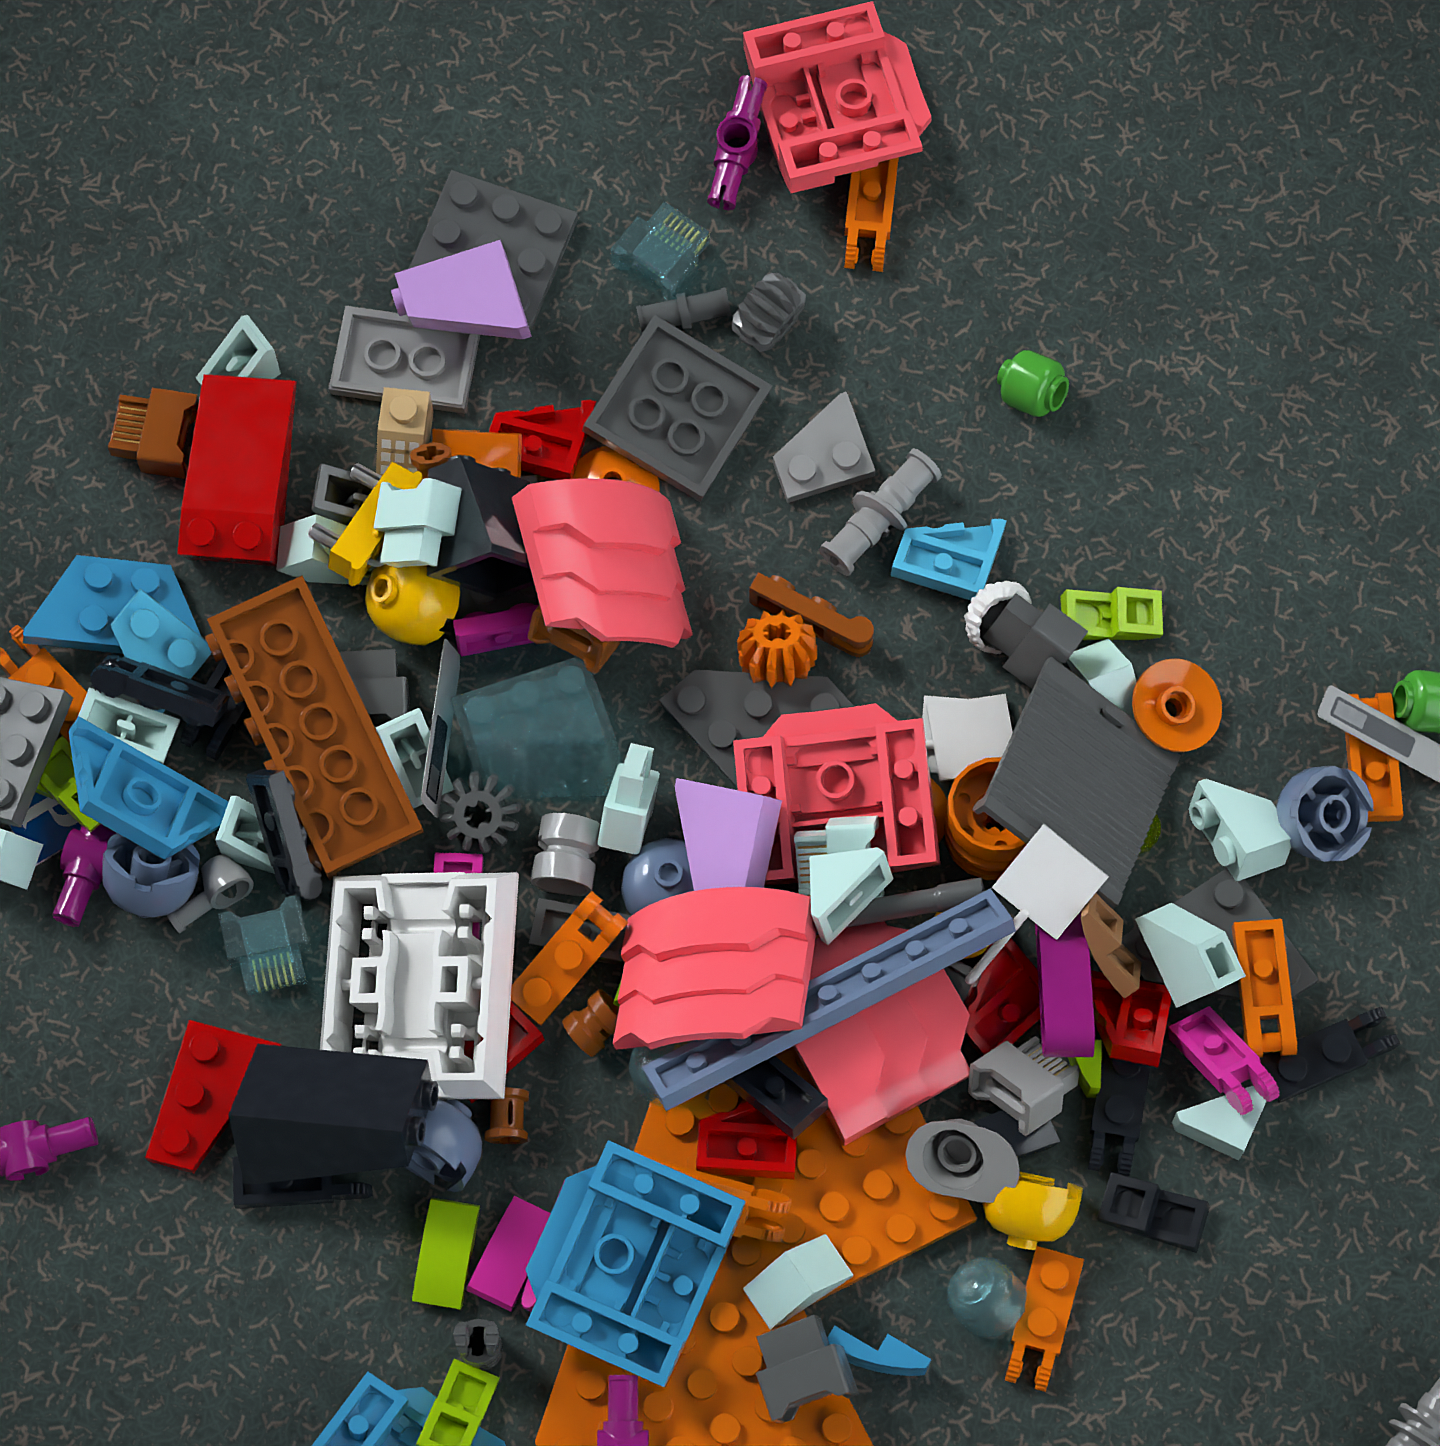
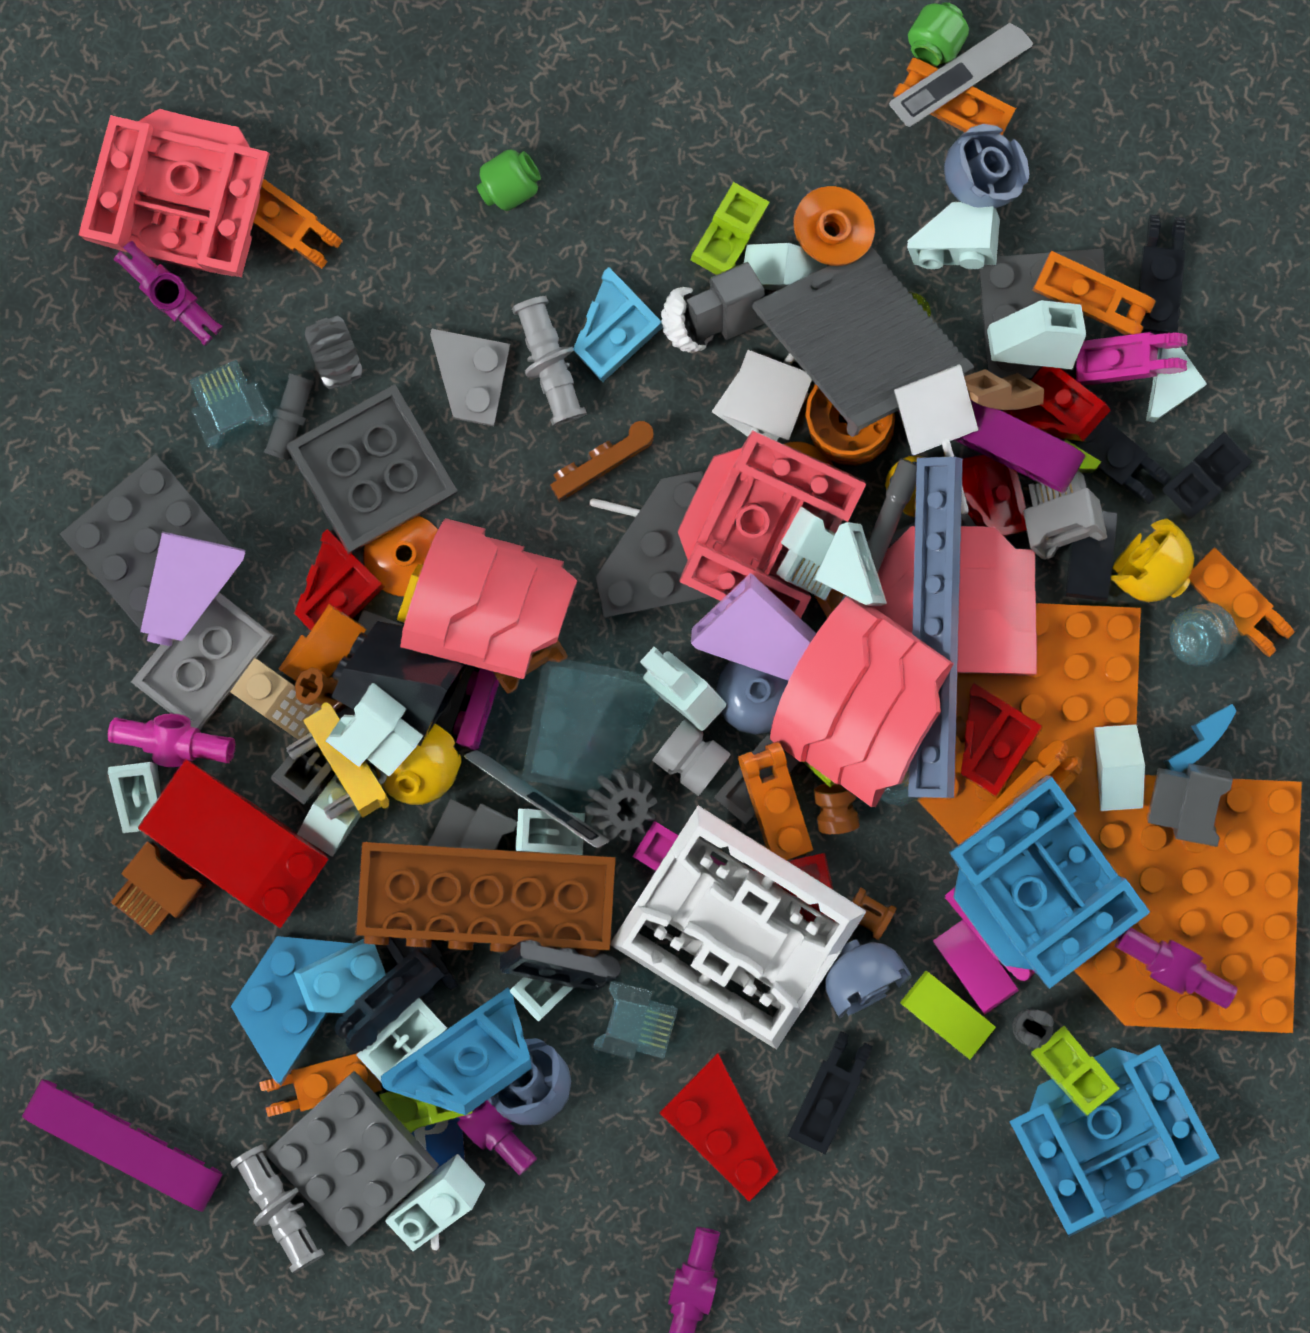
camera: 60 degrees left, 15 degrees up
(217, 876) = (559, 1032): light grey bar -> none
(311, 365) = (171, 740): none -> dark pink pin
(328, 1113) = (810, 1047): black slope -> none
(777, 648) = (620, 505): orange gear -> none
(780, 1095) = (985, 702): black hinge -> none
(962, 1160) = (1102, 596): light grey piece -> none

